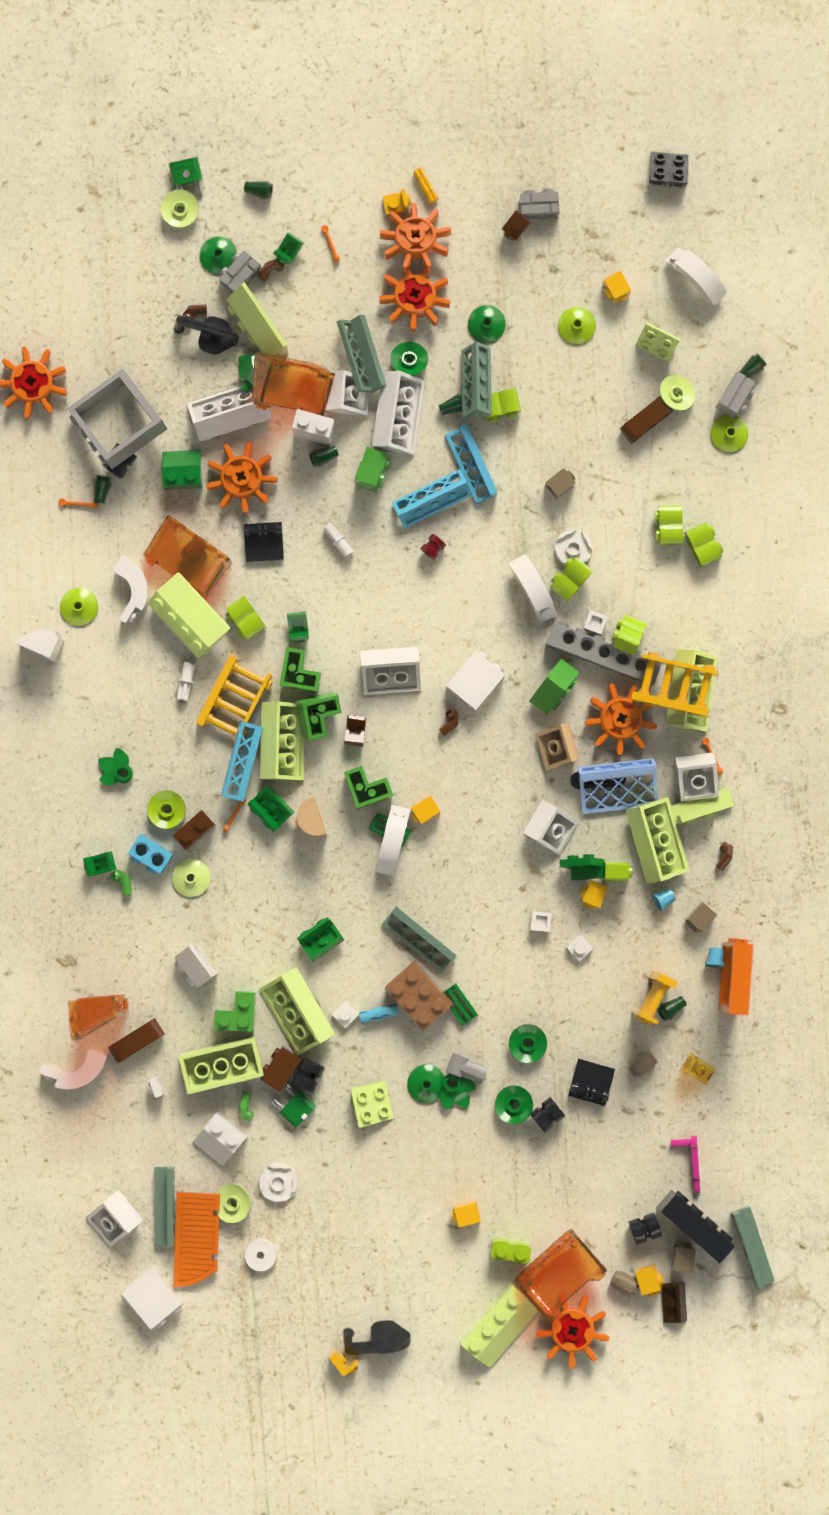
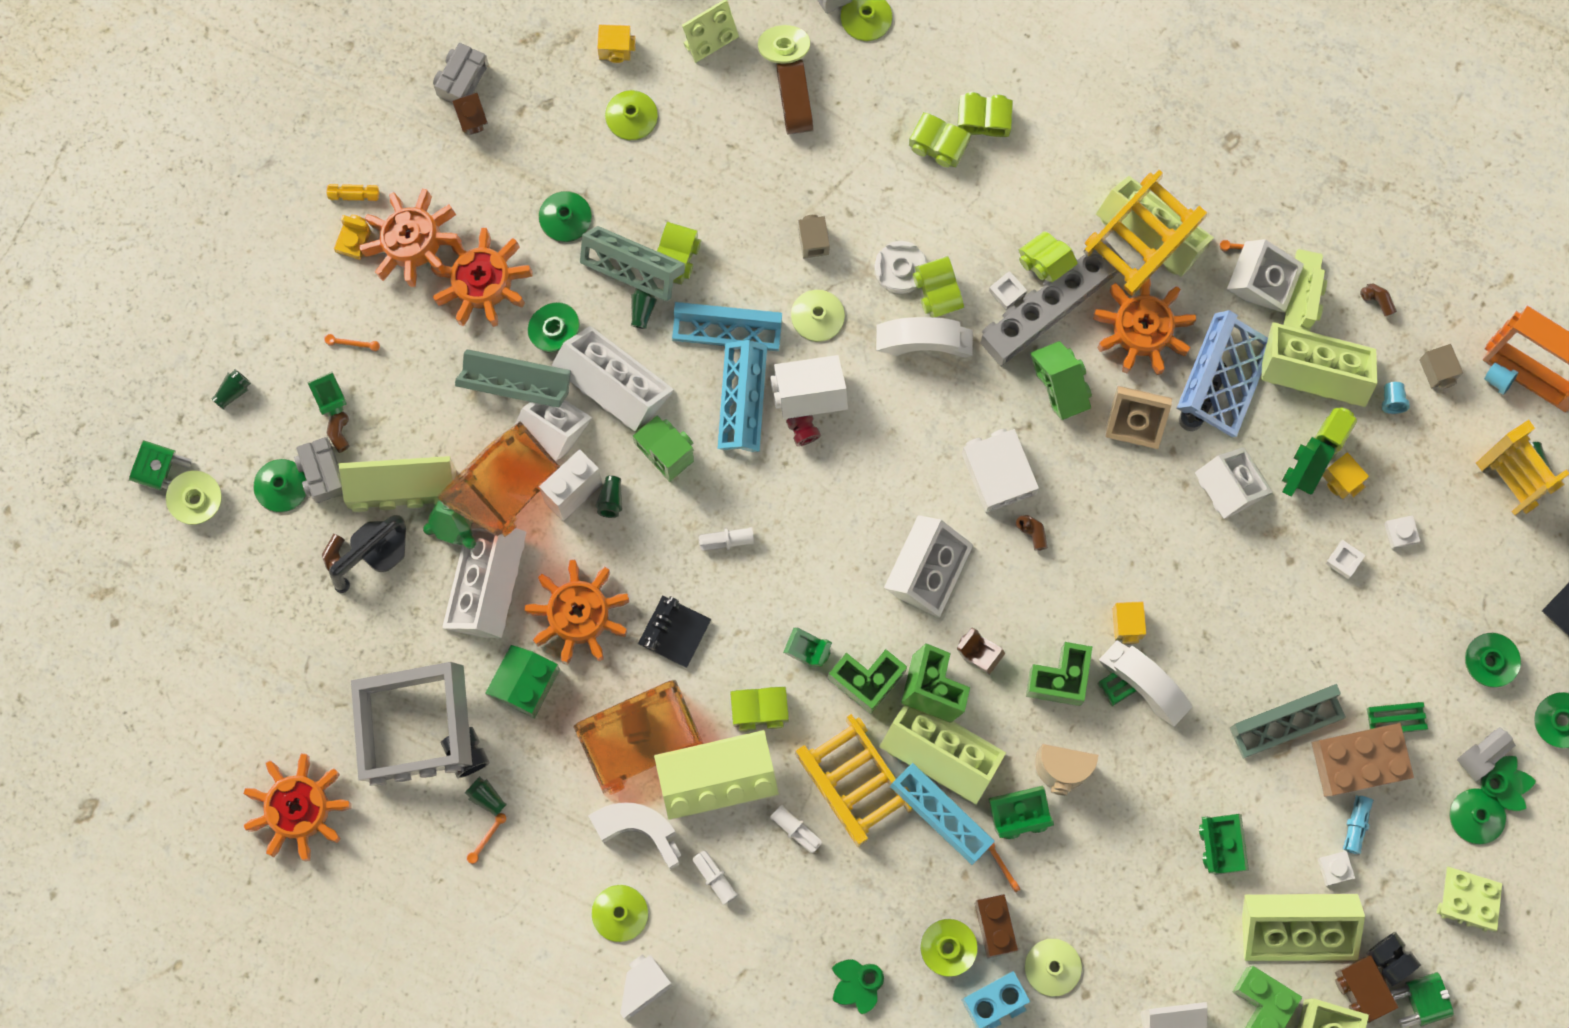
camera: 55 degrees left, 10 degrees down
(130, 649) = (714, 877): none -> white axle
(459, 535) = (809, 387): none -> white brick
(510, 524) = (817, 327): none -> yellowish green dish

